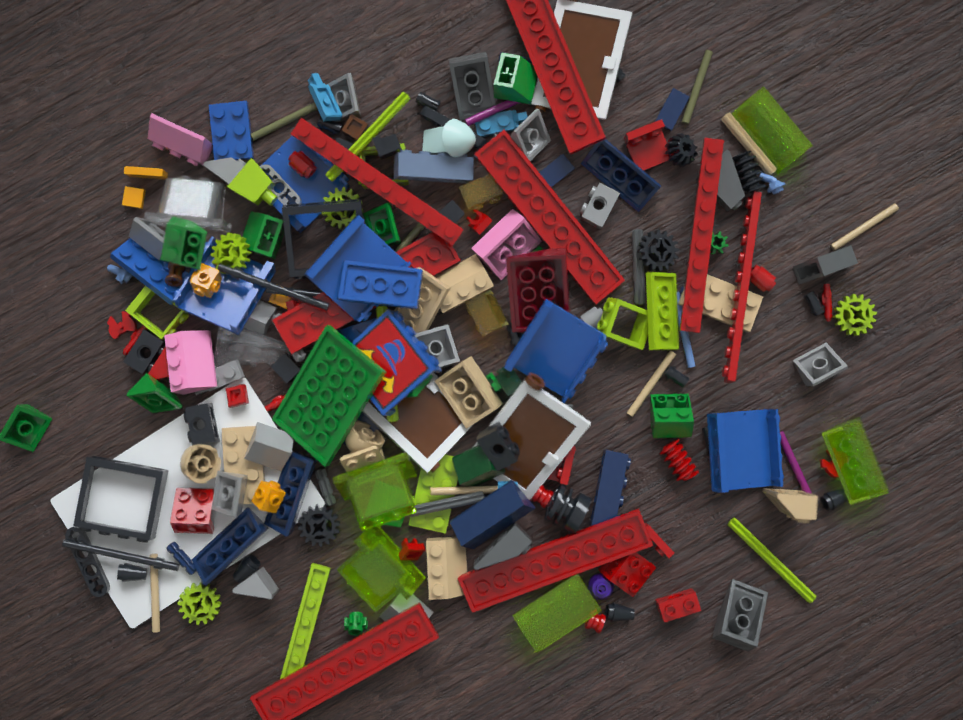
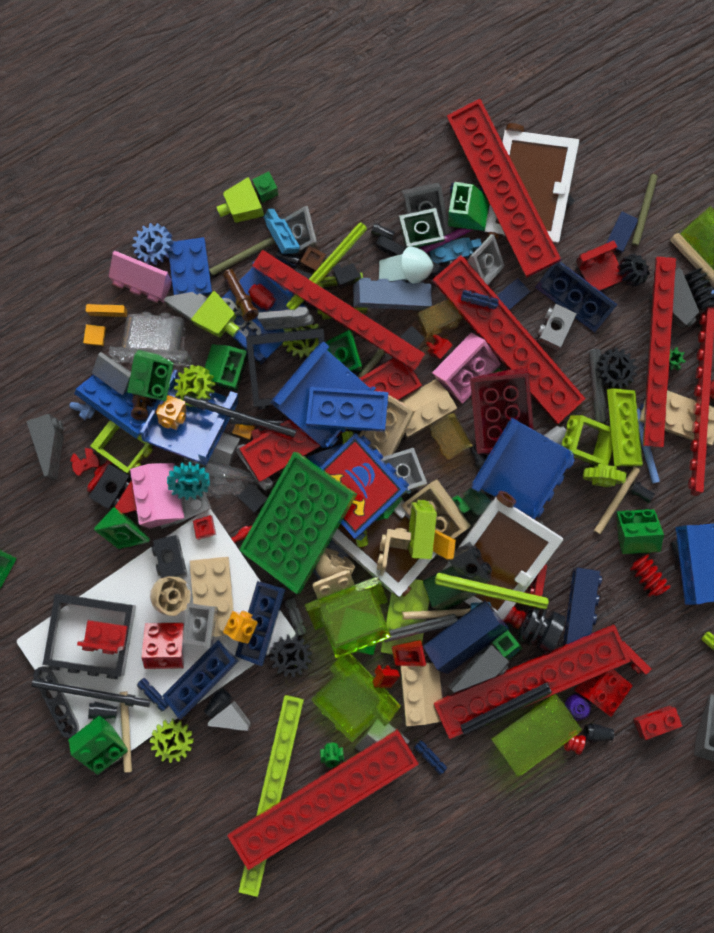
camera: 10 degrees left, 5 degrees down
(83, 305) = (48, 442): none -> dark grey slope
(125, 606) = (97, 745): none -> green slope
(132, 502) = (104, 636): none -> red bracket
(195, 107) = (153, 244): none -> medium blue gear
(220, 350) = (188, 481): none -> teal gear
(269, 447) = (239, 577): light grey slope -> none
(282, 168) = (243, 301): none -> reddish brown pin
(284, 65) = (241, 202): none -> lime torso
(309, 50) = (265, 187): none -> green brick
(324, 188) = (285, 319): none -> light grey hinge
(427, 415) = (394, 538): none -> tan bracket
(436, 529) = (409, 654): none -> red slope
(451, 408) = (422, 529): none -> lime window
(453, 629) = (430, 757): none -> dark blue axle
(466, 100) = (421, 228): none -> dark green slope
(470, 423) = (444, 545): none -> light orange tile
(517, 472) = (491, 591): none -> lime axle
(520, 176) = (479, 299): none -> dark blue axle
(528, 586) = (506, 708): none -> black axle
(533, 524) = (507, 645): none -> green brick
(639, 359) = (604, 475): none -> lime gear

